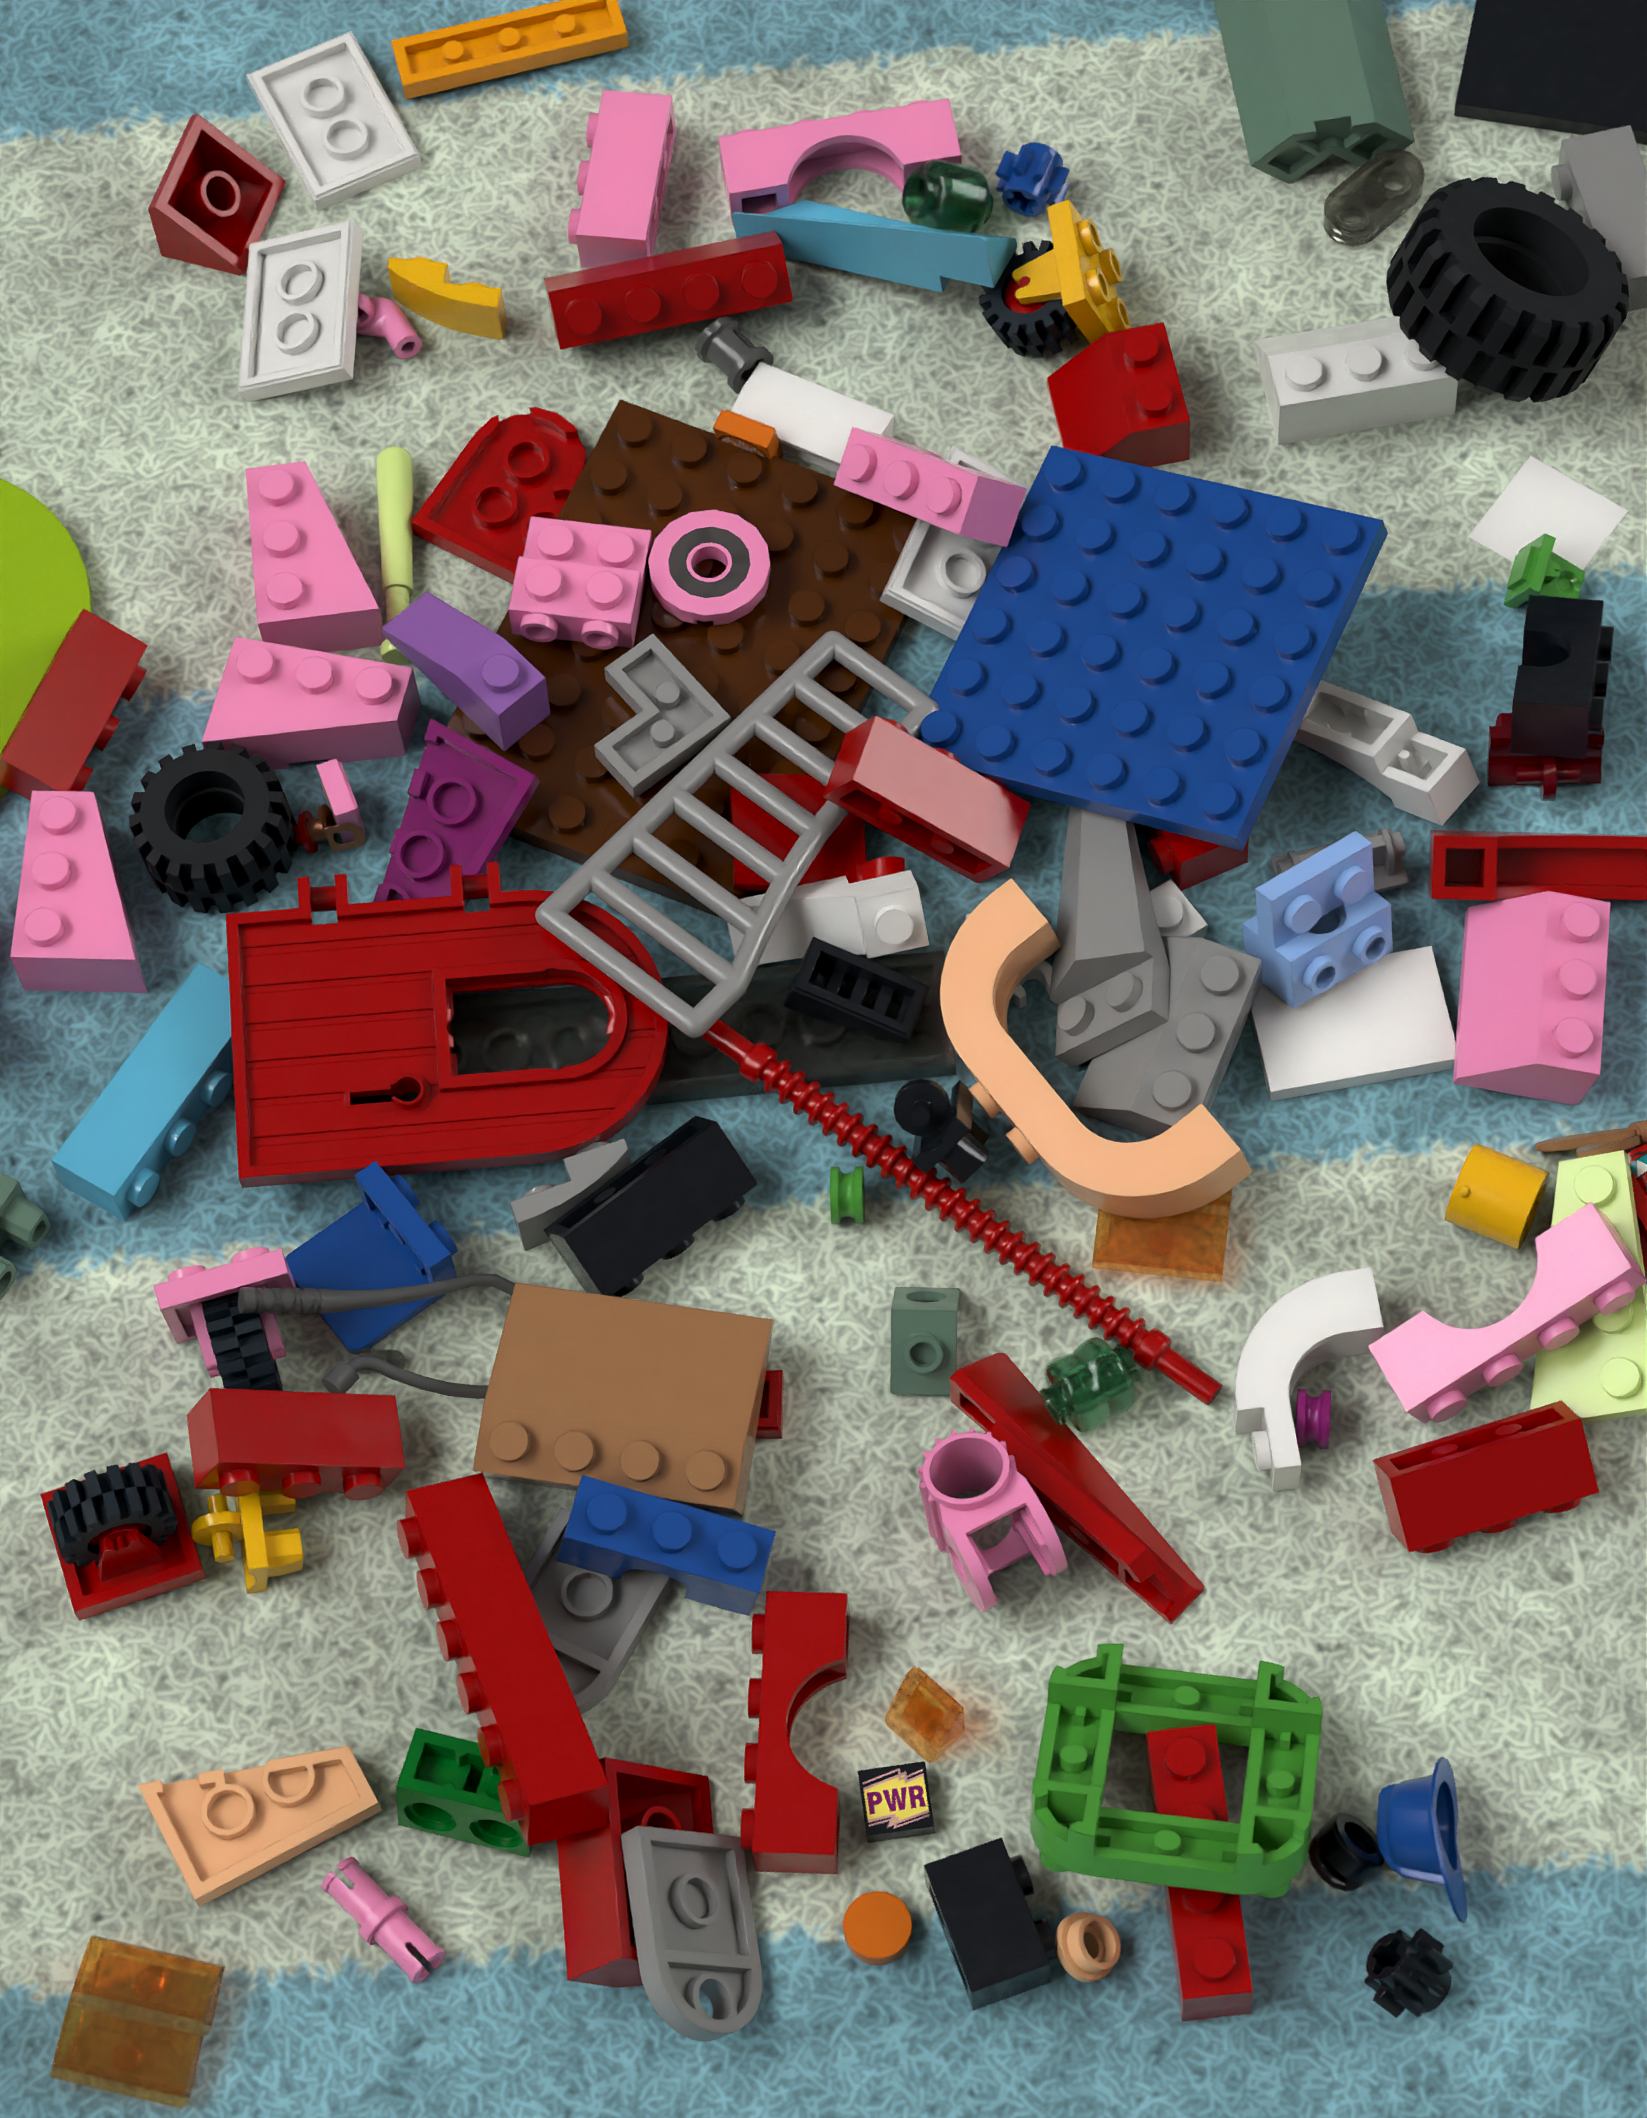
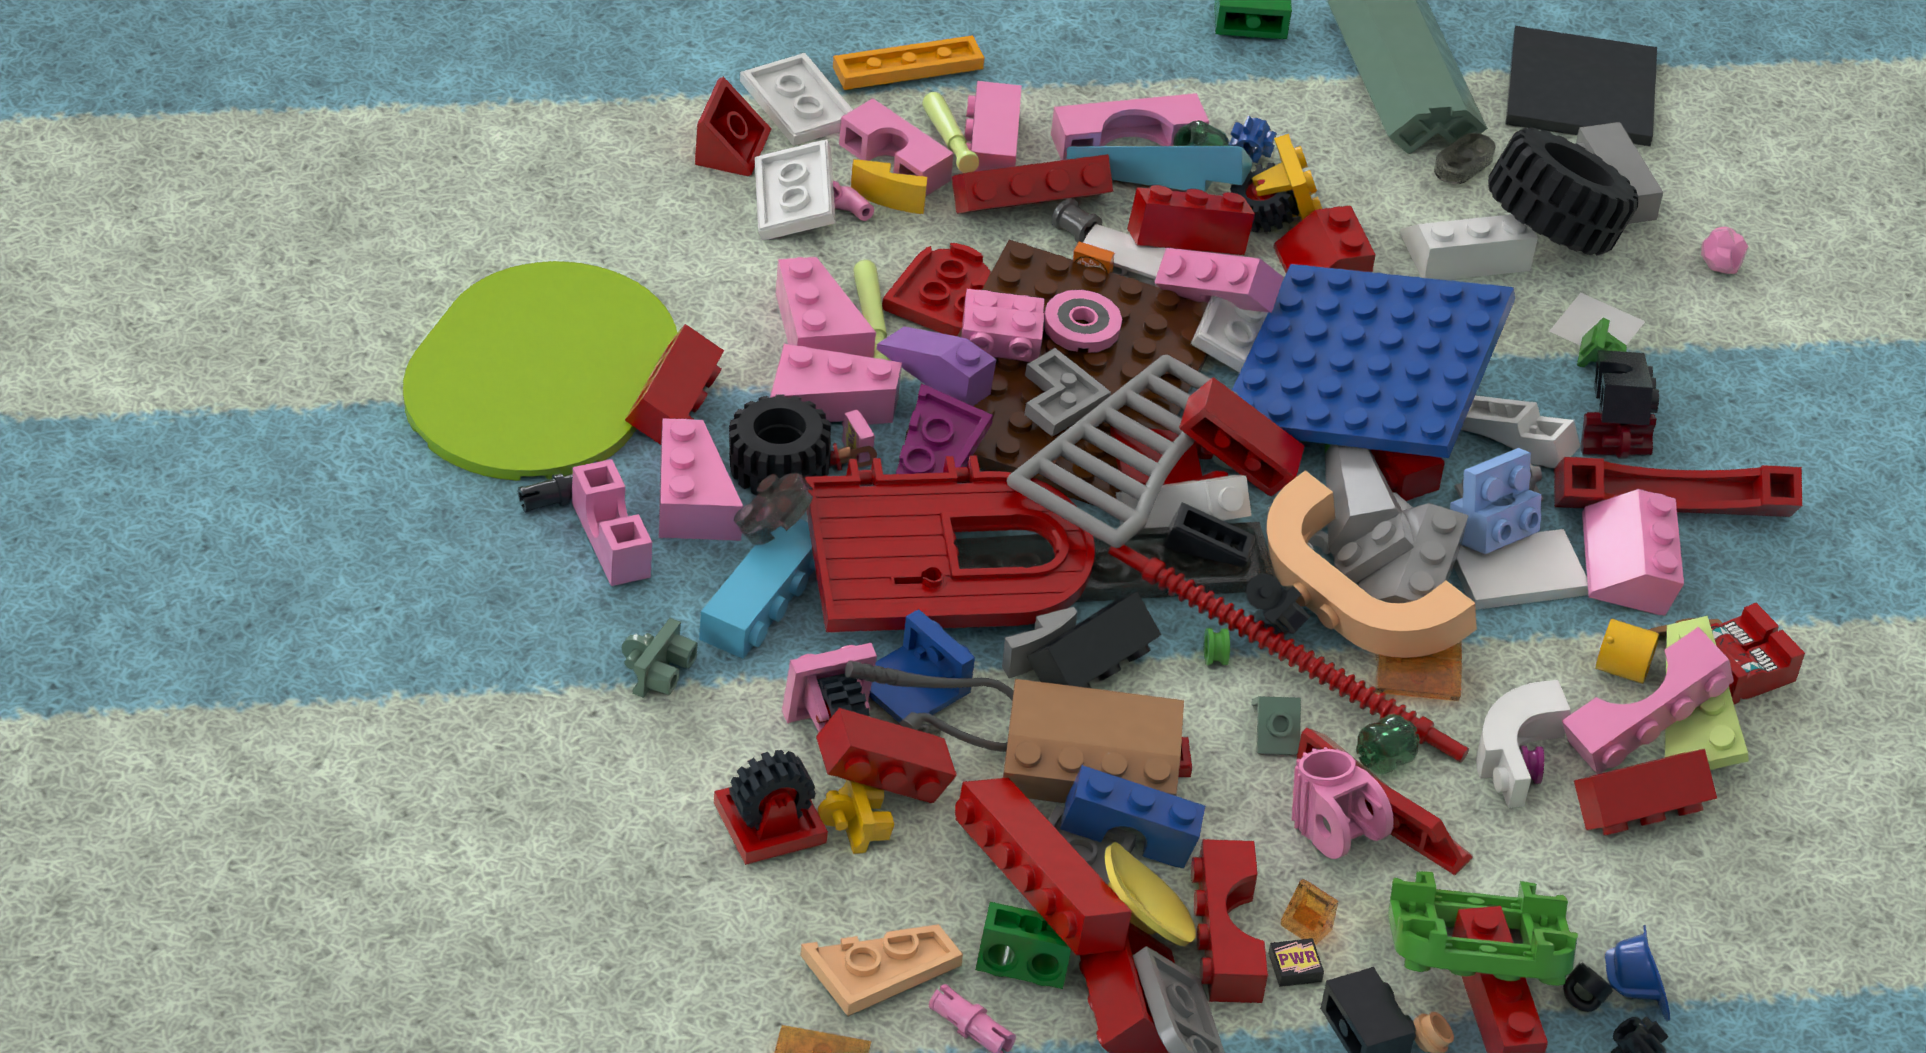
camera: 15 degrees left, 20 degrees down
(175, 970) = (777, 504): none -> clear smoke plate
(442, 188) = (878, 131): none -> bright pink arch
(550, 177) = (946, 125): none -> yellowish green piece
(663, 1711) = (1149, 898): none -> light yellow hat
(877, 1928) = (1294, 1027): orange tile -> none
(906, 359) = (1190, 220): none -> red brick

